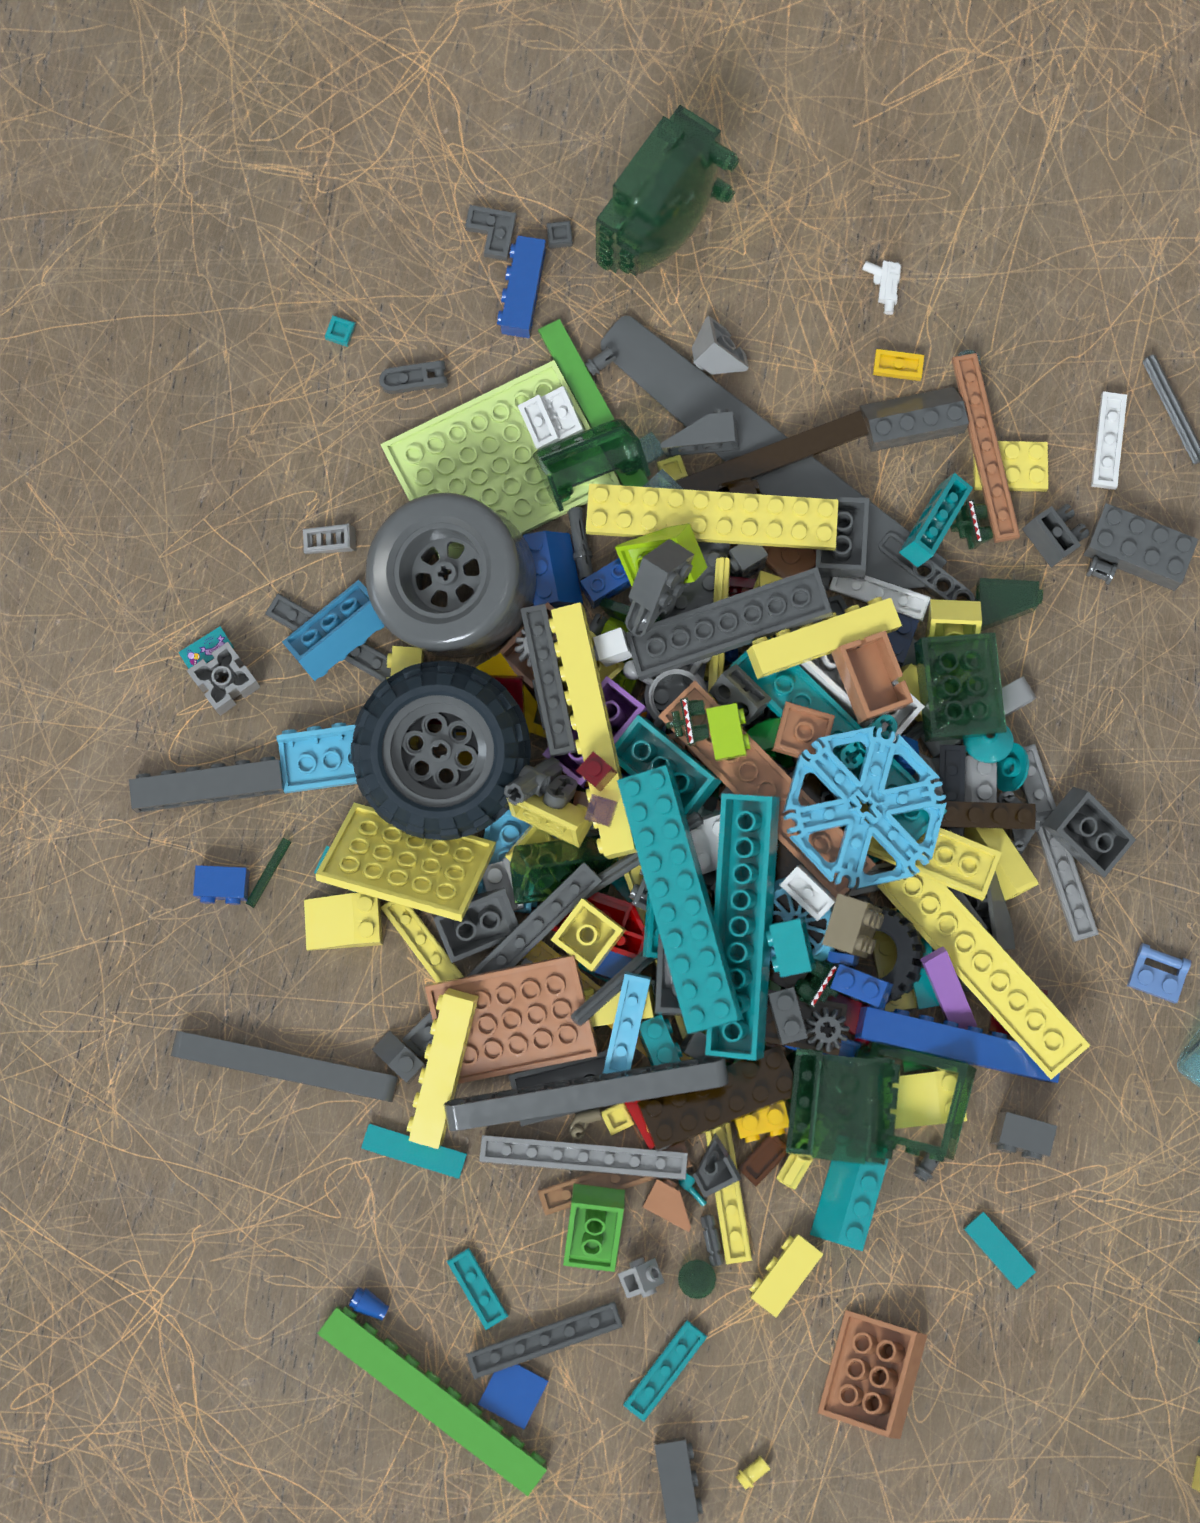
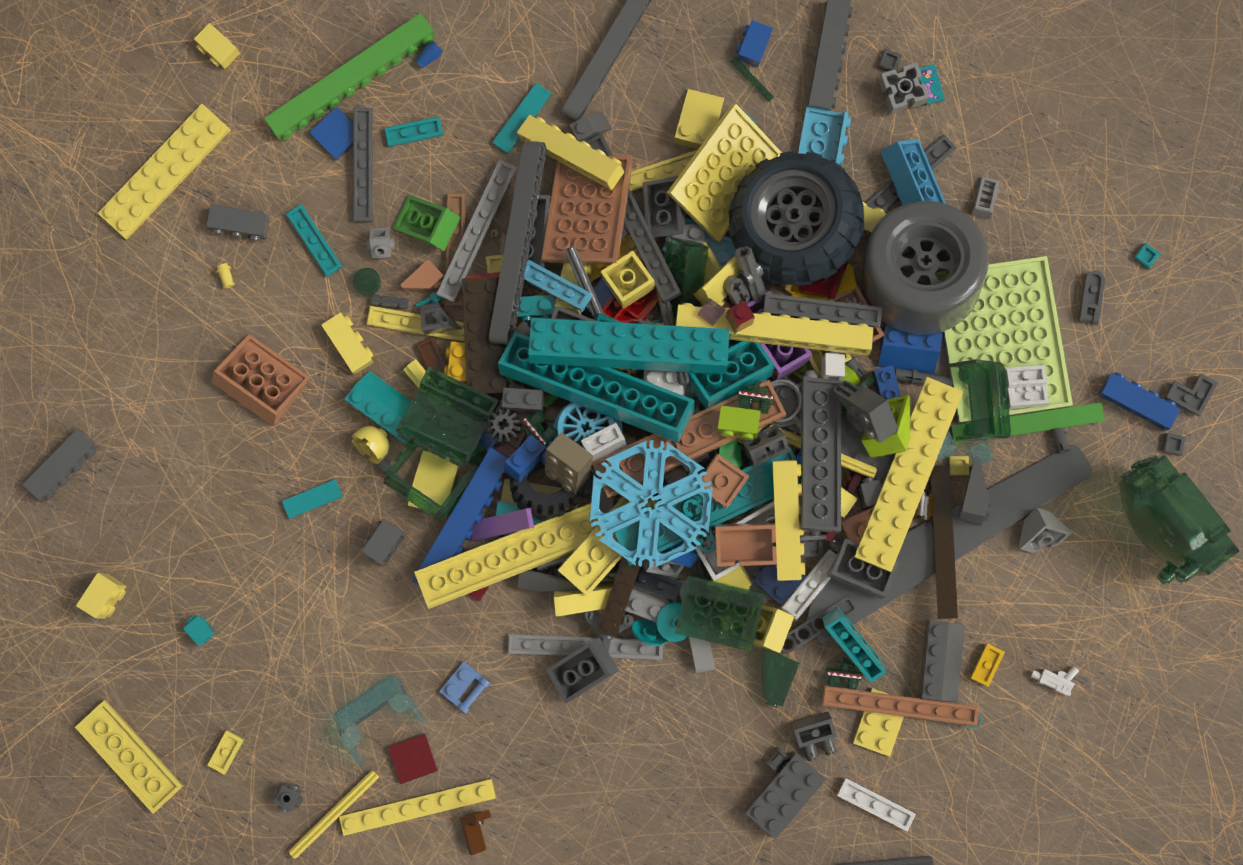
camera: 105 degrees right, 5 degrees up
(191, 709) = (889, 60): none -> dark grey tile
(791, 947) = (568, 414): teal brick -> none
(903, 1195) = (371, 442): none -> light yellow cylinder

